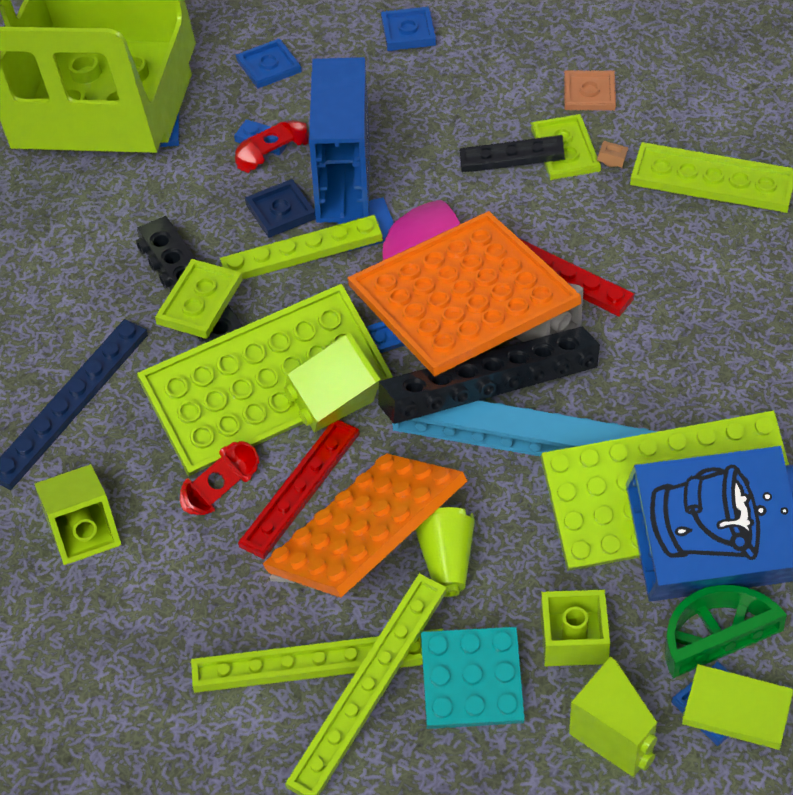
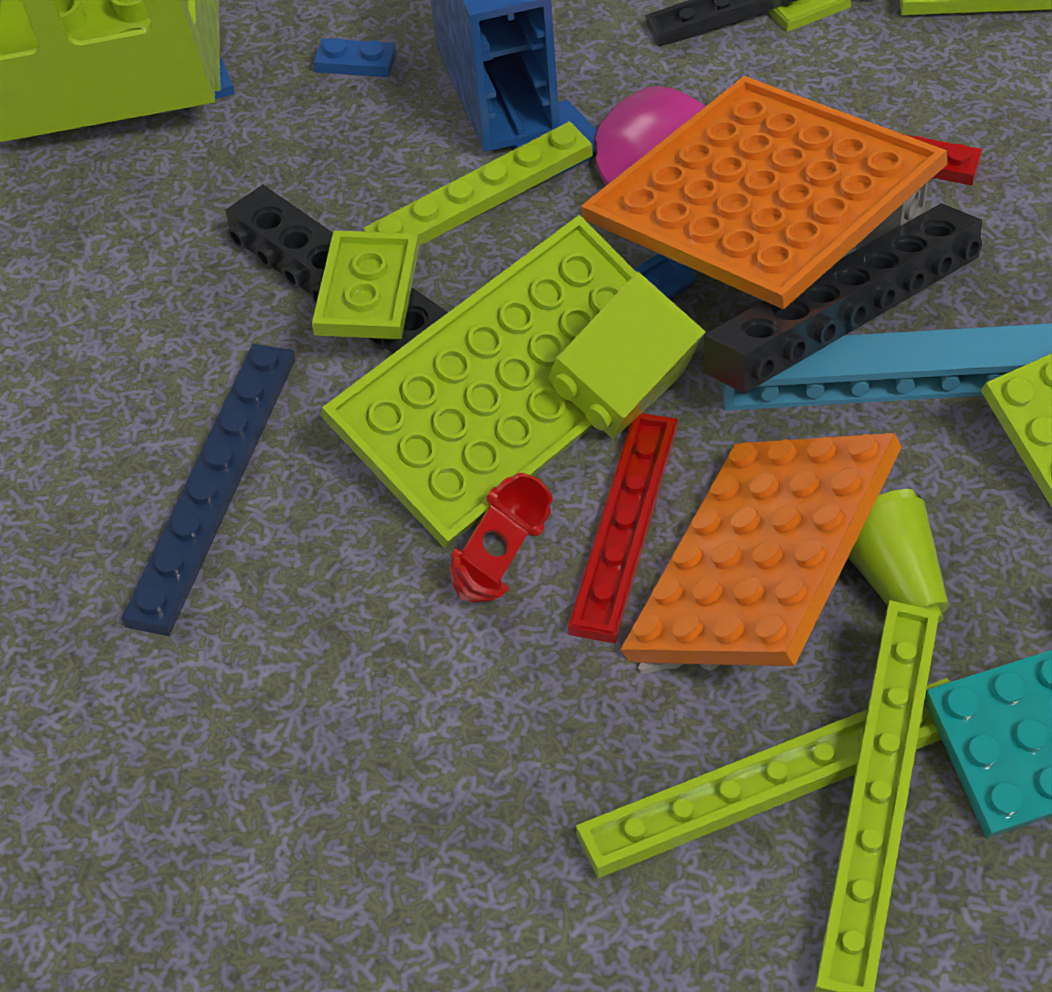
camera: 15 degrees left, 0 degrees up
(78, 514) = (299, 644): lime slope -> none
(251, 150) = (351, 74): red piece -> none
(280, 208) = (424, 143): dark blue plate -> none

